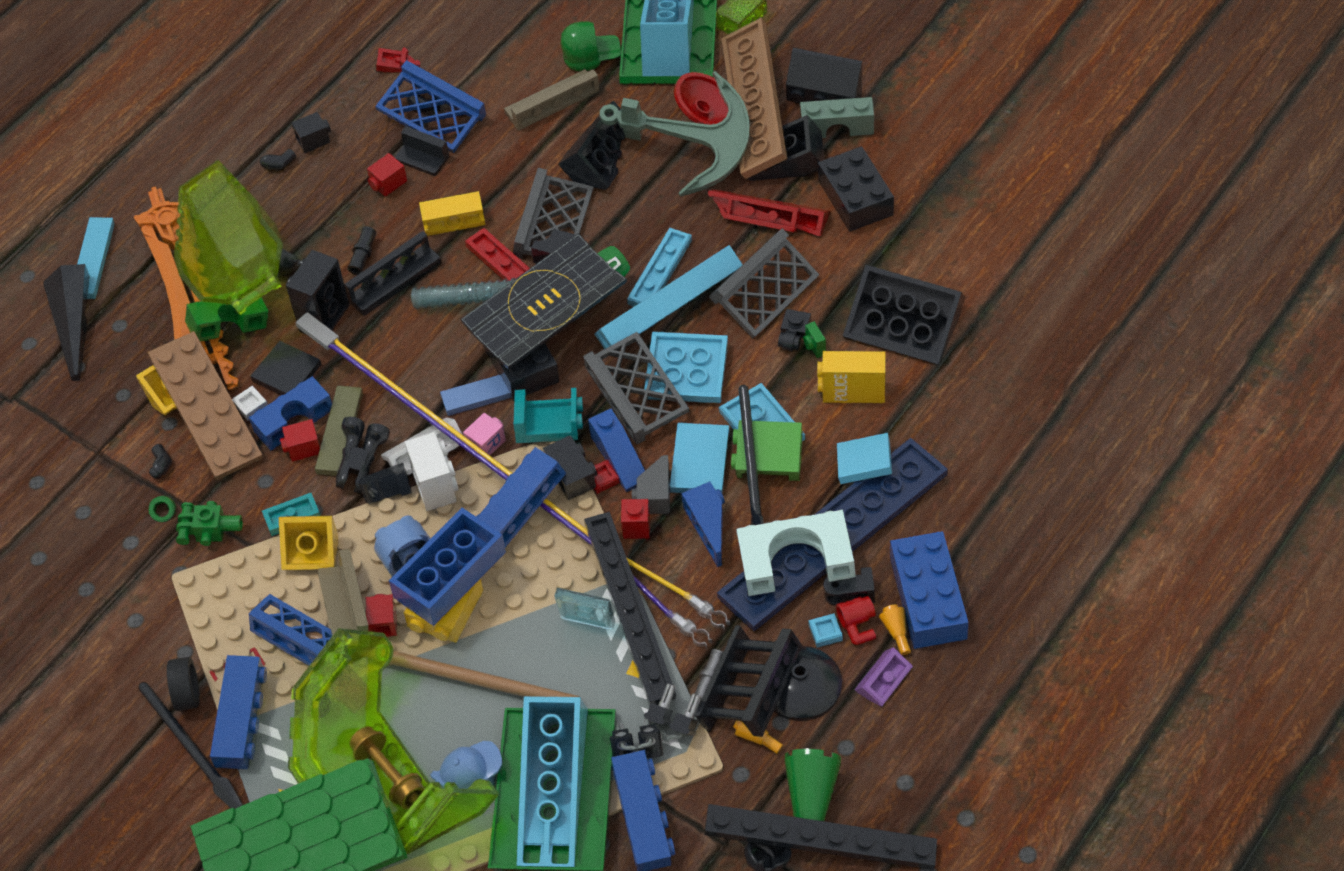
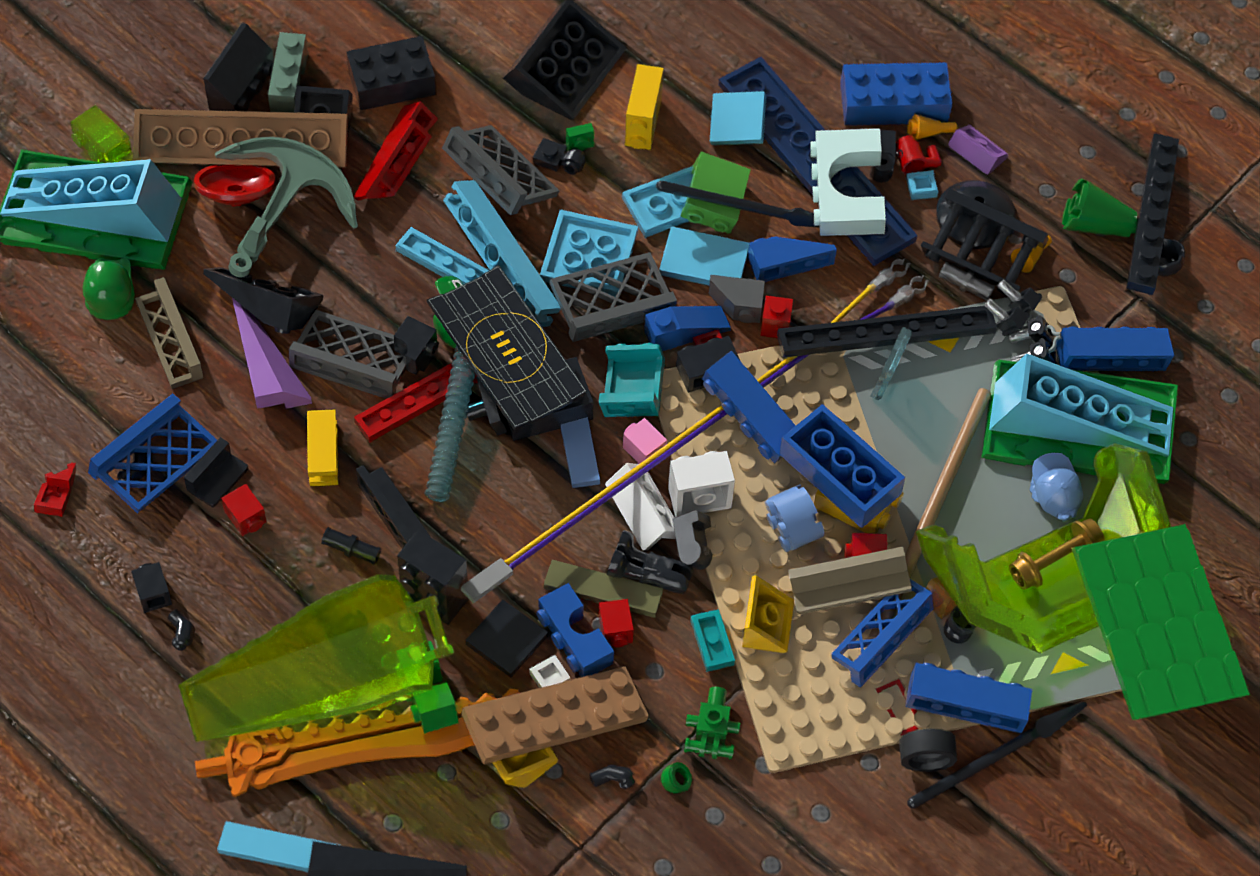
camera: 90 degrees left, 5 degrees up
(517, 166) = (268, 370): none -> medium lavender wedge

